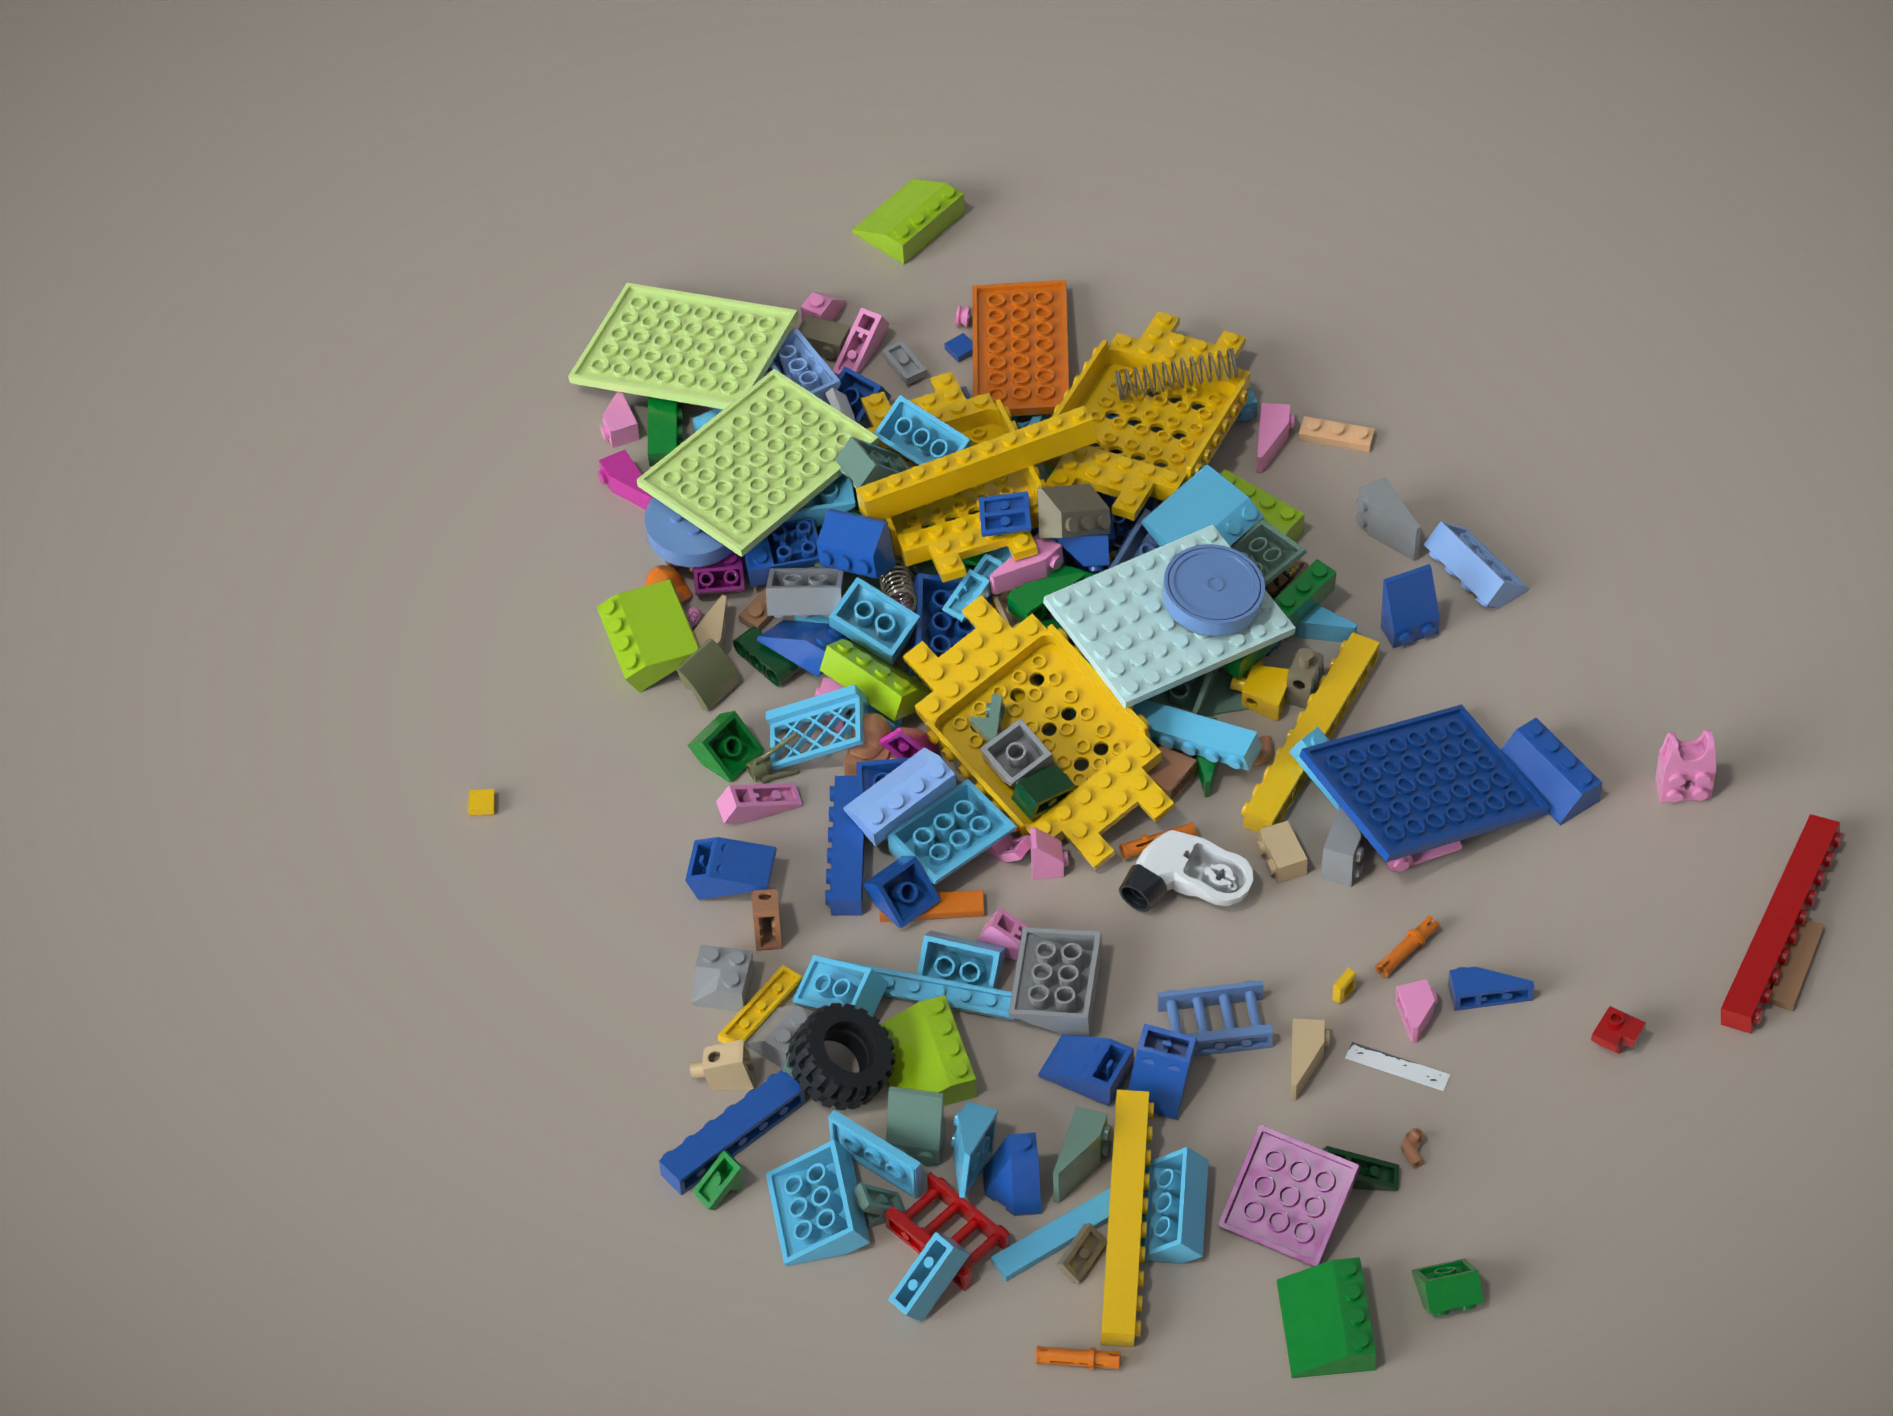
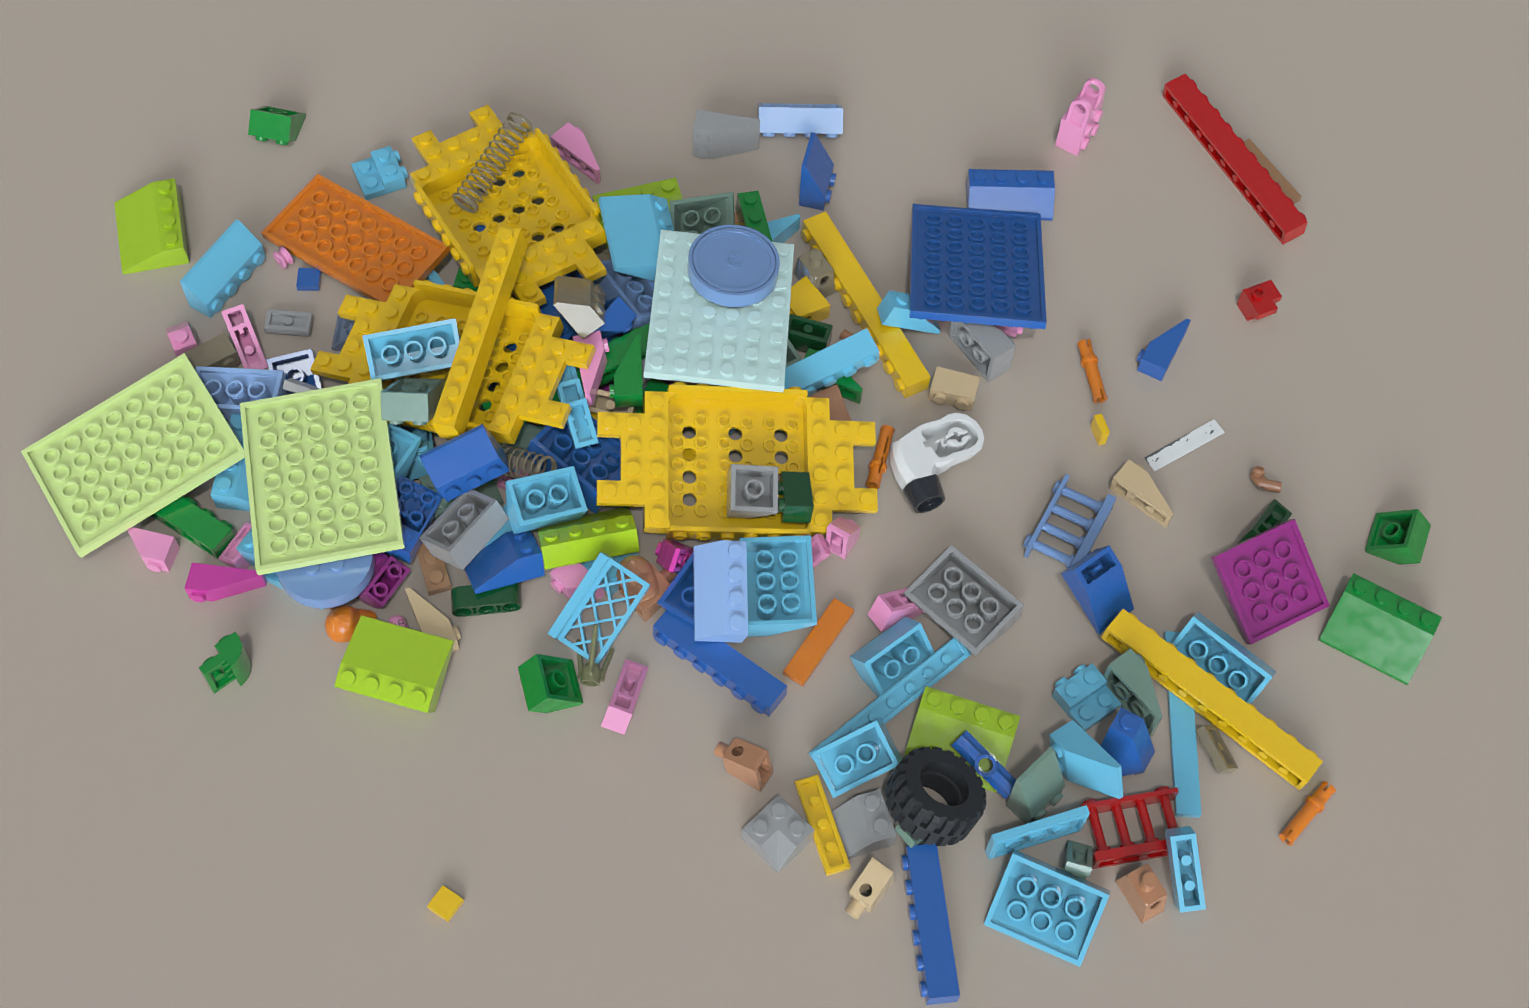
camera: 60 degrees left, 10 degrees up
(558, 530) = (228, 665): none -> green brick
(709, 674) = (474, 649): olive slope -> none
(719, 1179) = (976, 964): green slope -> none
(729, 867) = (681, 757): blue slope -> none
(892, 1259) = (1142, 891): none -> nougat torso
(902, 890) = (798, 651): blue slope -> none
(909, 284) = (222, 269): none -> medium azure slope
(909, 1066) = (973, 752): none -> blue piece
(991, 725) = (710, 491): sand green slope -> none
(1005, 514) = (545, 345): blue slope -> none
(1050, 1123) = (1085, 696): none -> medium azure plate
(1089, 1066) = (1053, 633): blue slope -> none
(1091, 220) = (275, 124): none -> green slope
(1112, 317) = (380, 173): none -> medium azure plate
(1230, 705) = (808, 333): none -> dark green brick
(1336, 434) = (609, 117): light nougat plate -> none
(1416, 1006) = (1152, 401): bright pink slope -> none

